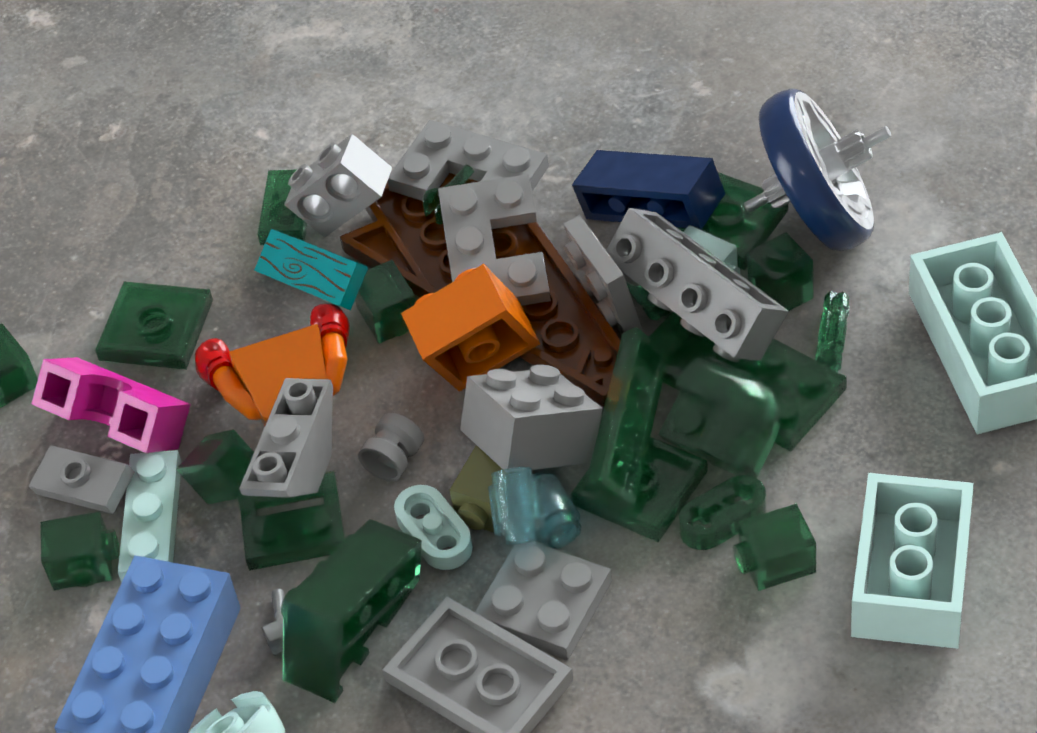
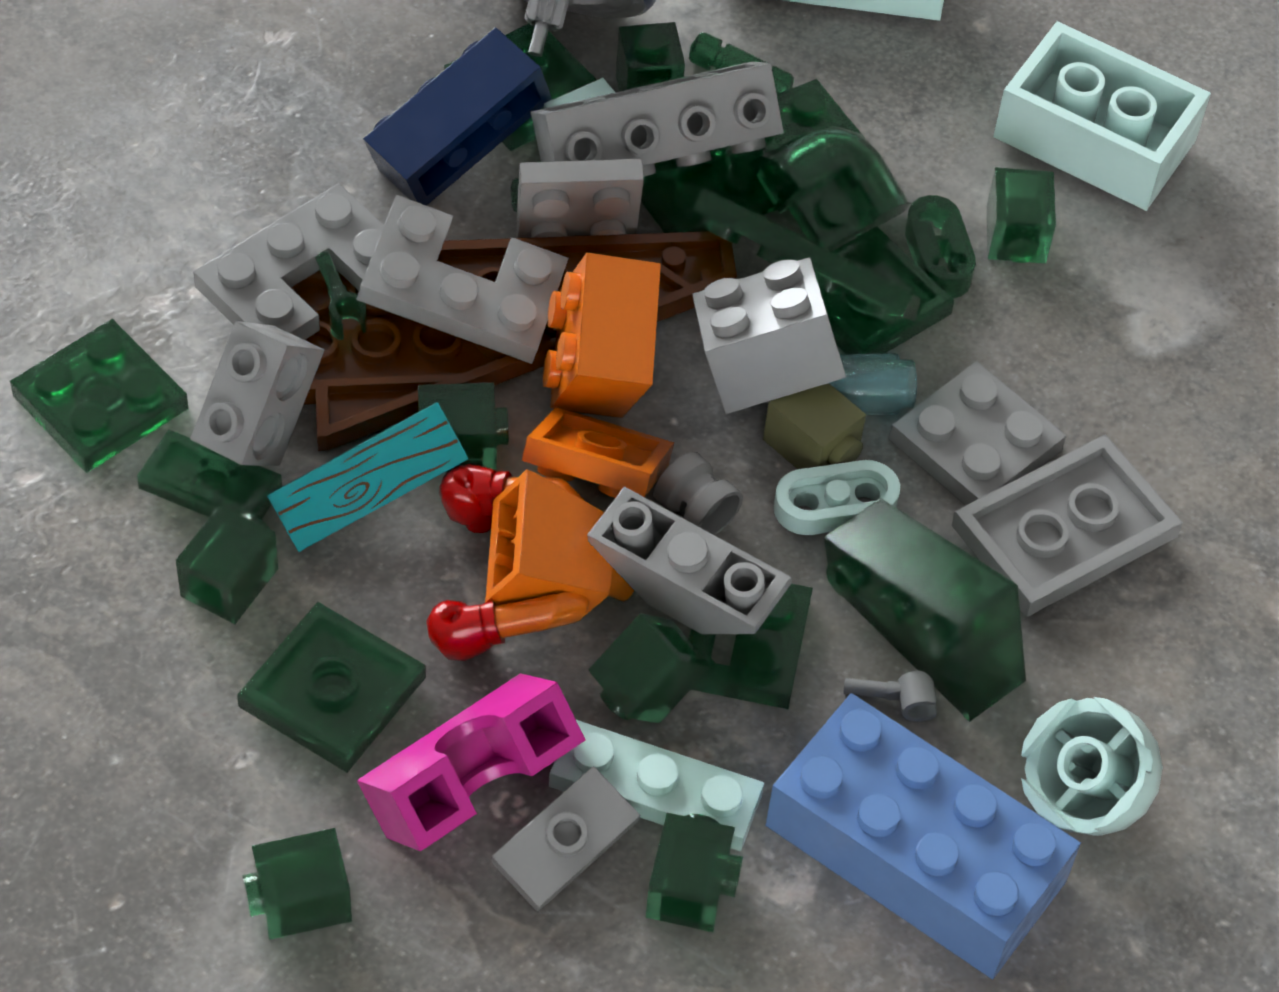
camera: 80 degrees left, 5 degrees up
(222, 238) = (227, 563): none -> clear green brick
(329, 120) = (99, 395): none -> clear green plate
(388, 375) = (597, 452): none -> orange plate
(516, 505) = (888, 389): clear light blue brick -> none

